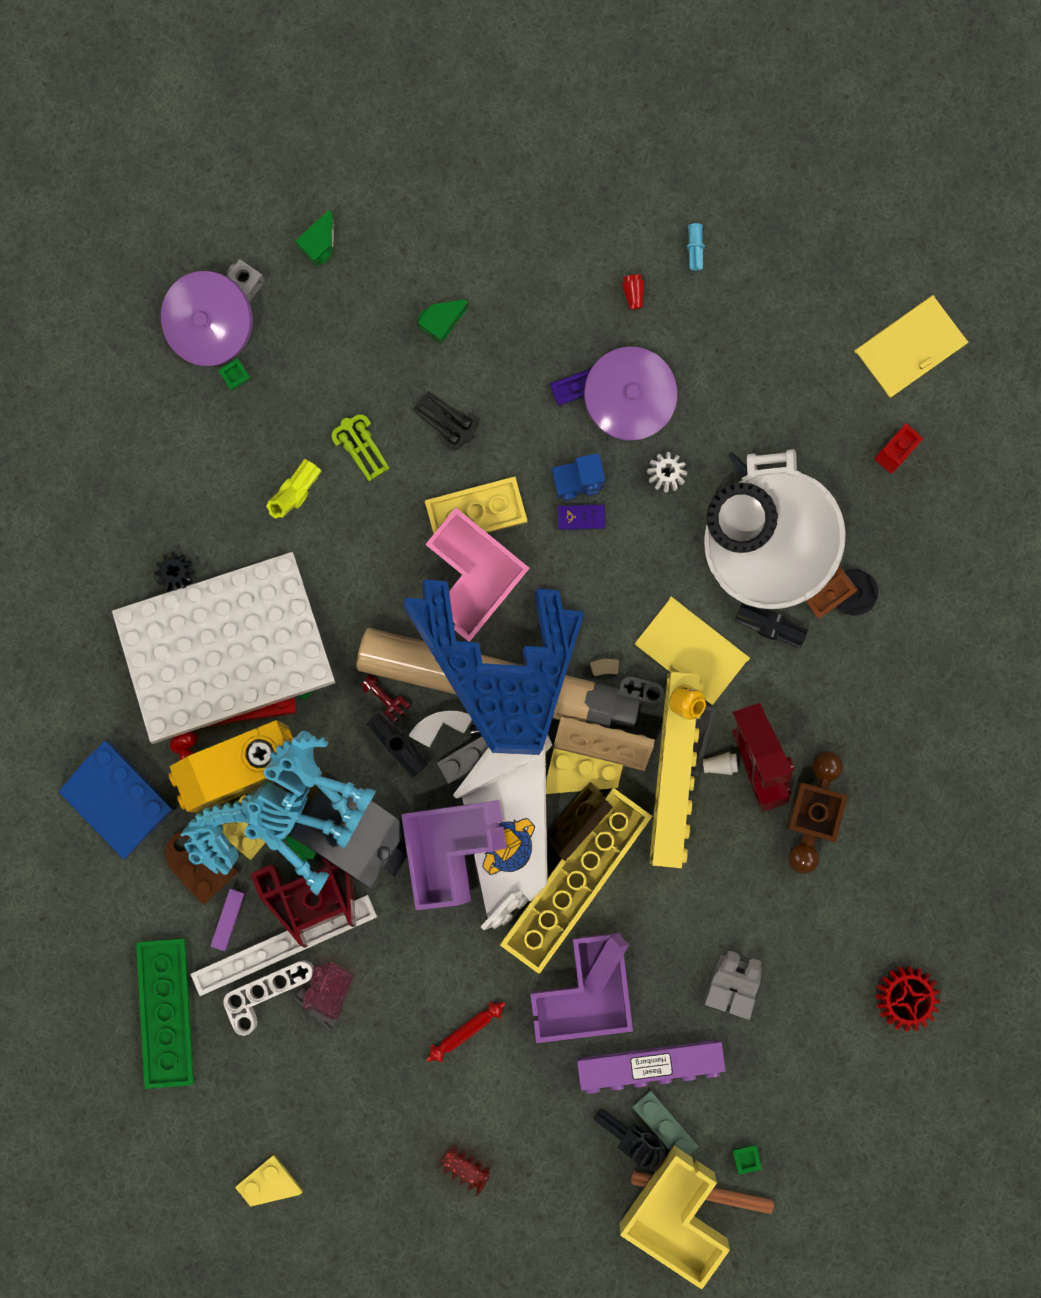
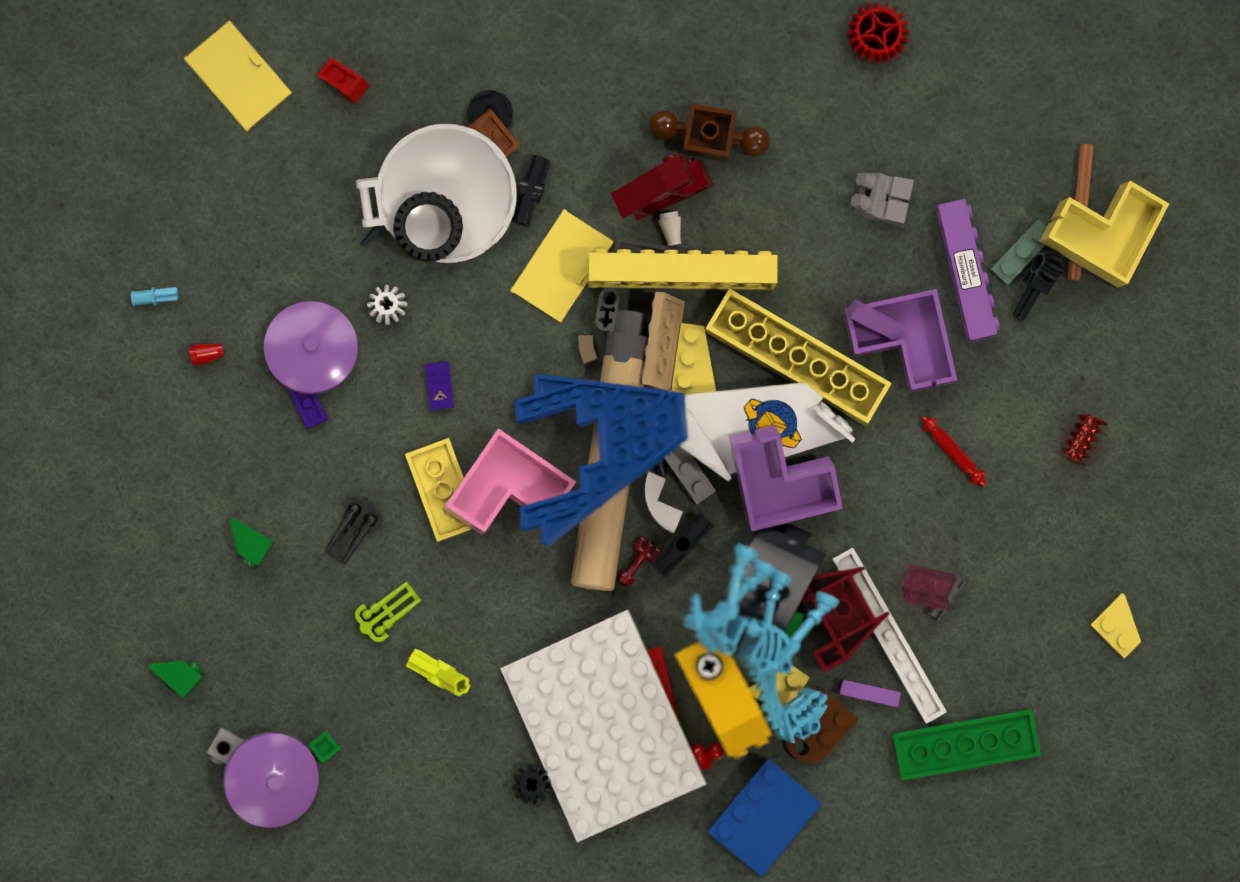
camera: 90 degrees left, 0 degrees up
(270, 990) = (934, 642): white beam -> none
(578, 821) = (740, 359): dark brown tile -> none
(579, 477) = (400, 389): blue brick -> none
(687, 702) = (618, 261): yellow head -> none
(746, 1159) = (1044, 172): green plate -> none

